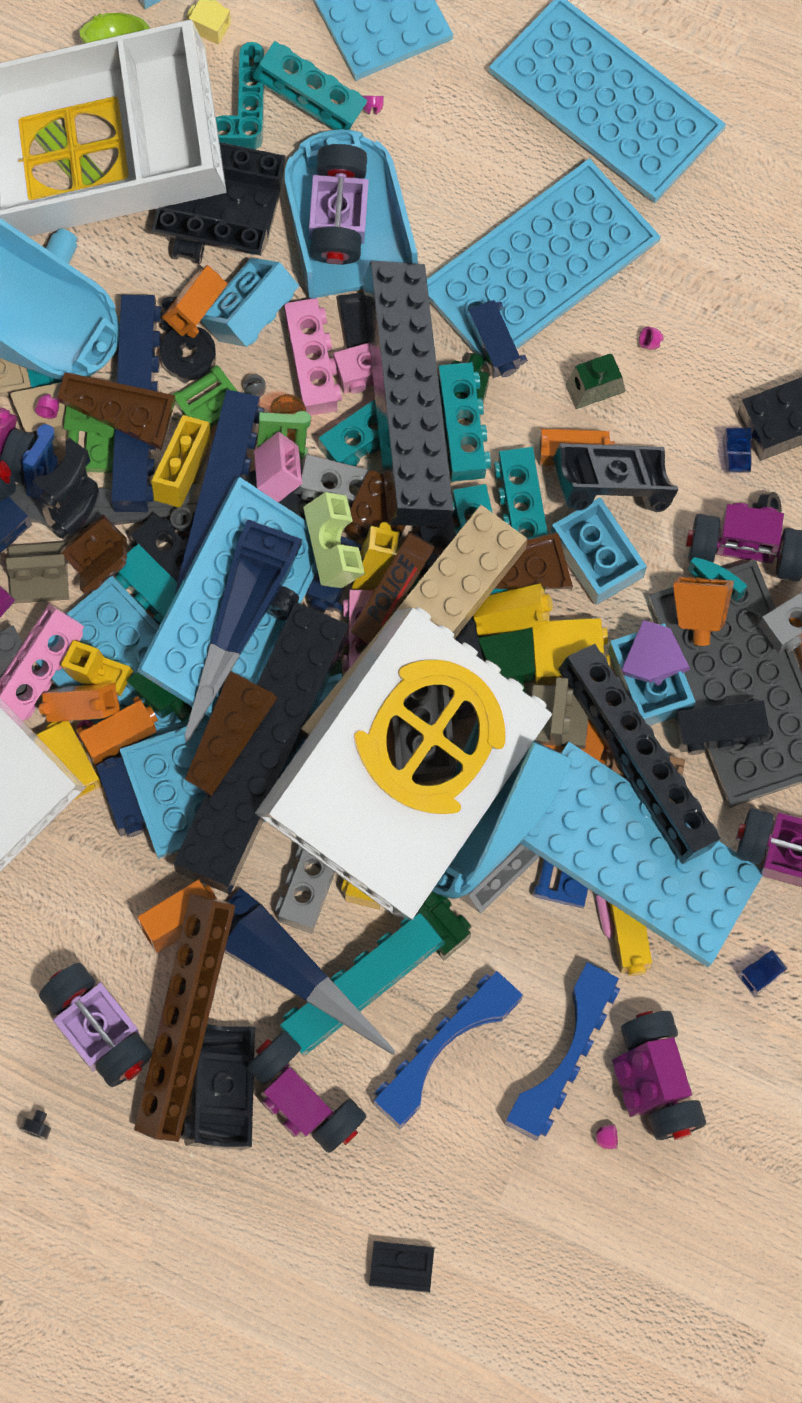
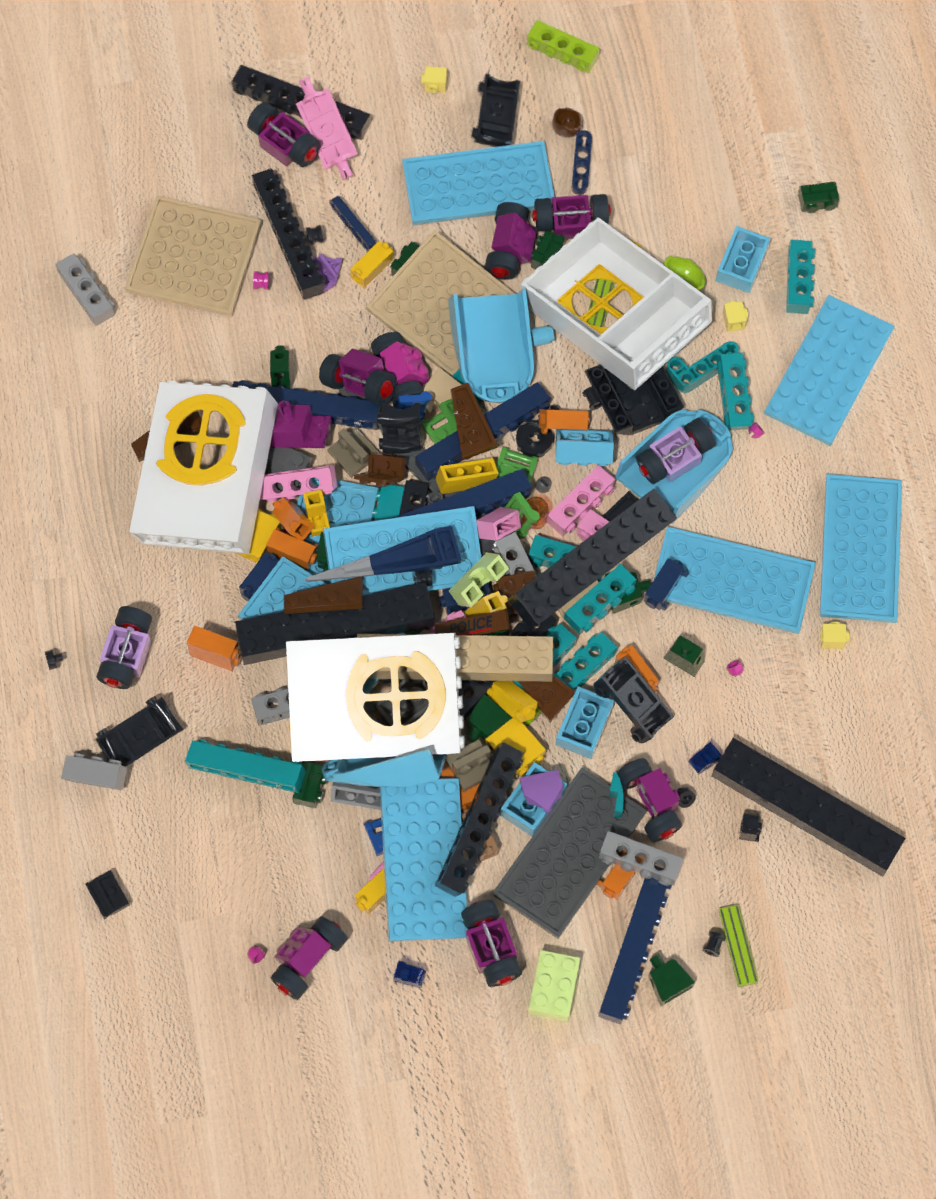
camera: 55 degrees right, 5 degrees down
(47, 407) = (443, 389): dark pink hinge -> none
(184, 1018) = (157, 686): reddish brown brick -> none
(232, 1174) = (94, 771): none -> light grey brick
(268, 949) = (231, 699): dark blue plate -> none
(297, 1101) = (156, 776): brick -> none
(488, 1005) = (202, 831): blue arch -> none
(534, 1106) = (245, 904): blue arch -> none
(692, 204) = (834, 635): none -> light yellow brick
(702, 605) = (592, 796): orange torso -> none
(722, 727) = (531, 855): black brick -> none

